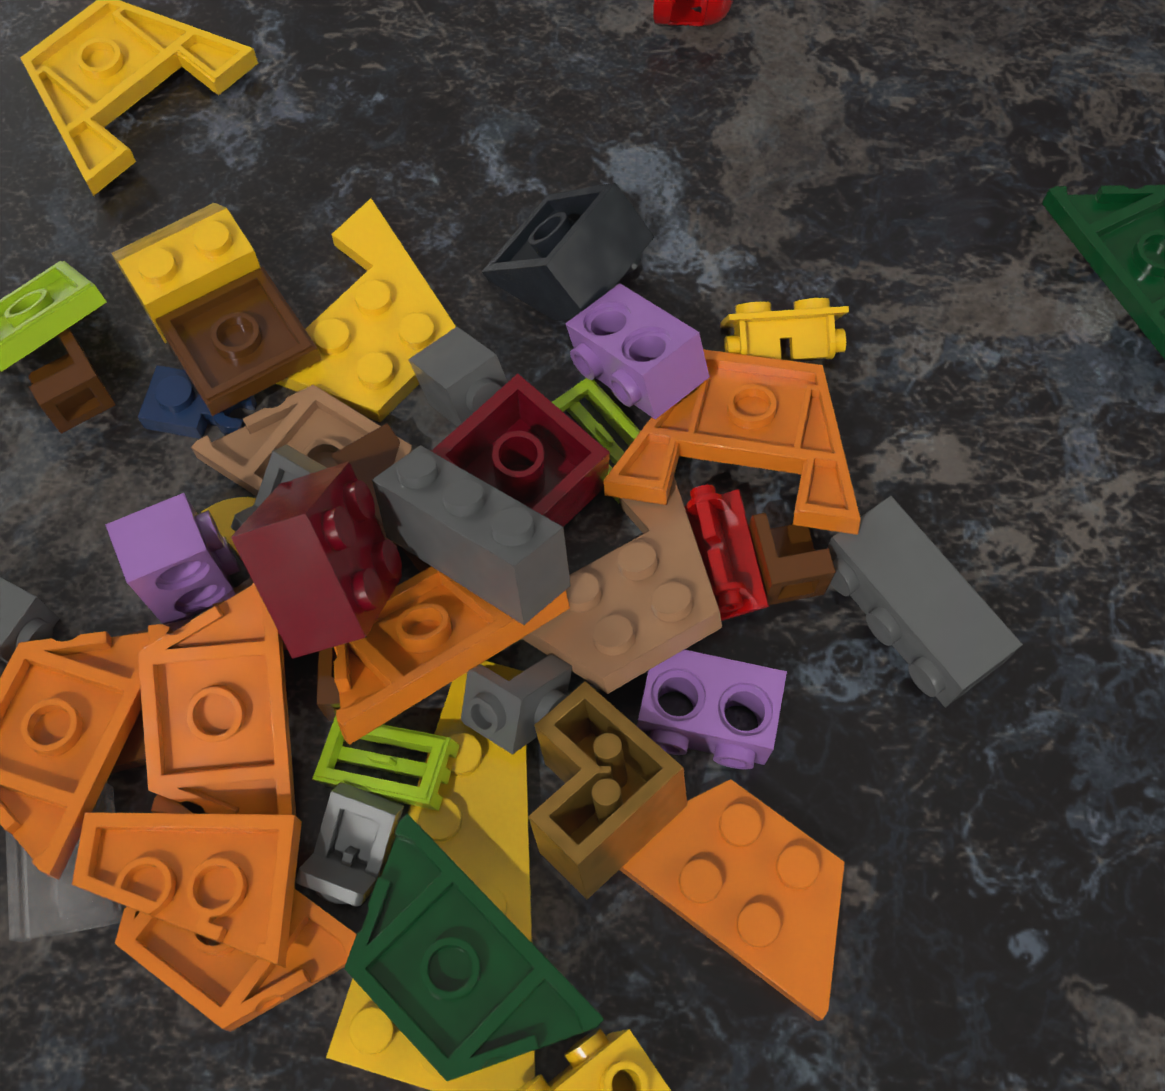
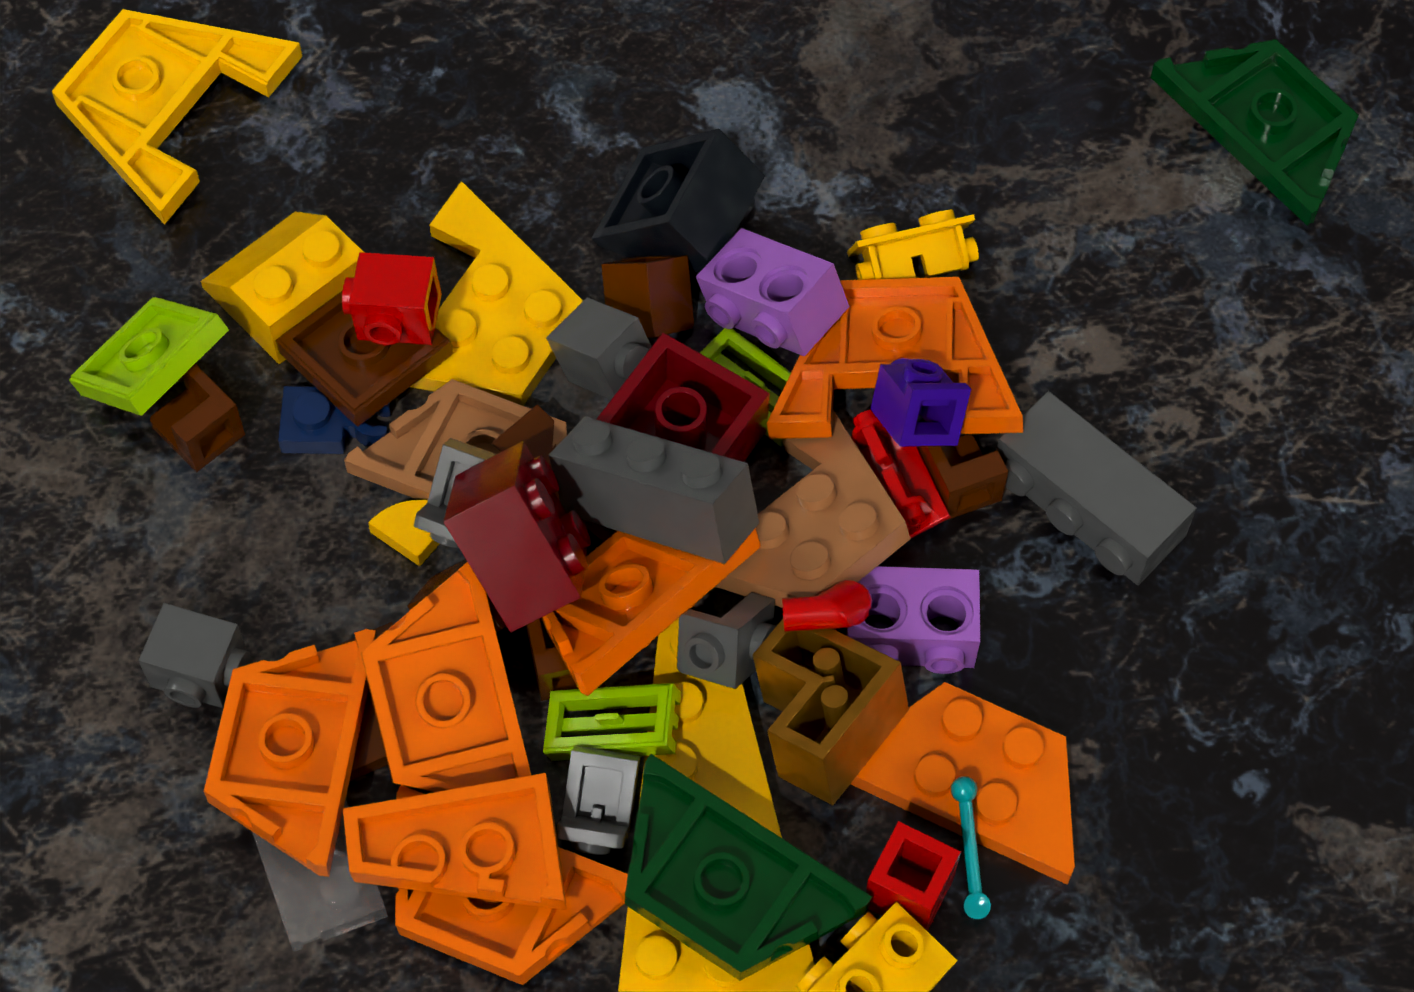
camera: 10 degrees left, 5 degrees down
(174, 558) = (366, 565): medium lavender brick -> none
(266, 297) = (393, 298): none -> red brick
(522, 332) = (653, 290): none -> reddish brown panel
(625, 693) = (837, 607): none -> red arm
(653, 998) = (913, 873): none -> red brick
(718, 1025) = (975, 903): none -> teal hinge
(761, 471) = (915, 389): none -> dark purple brick

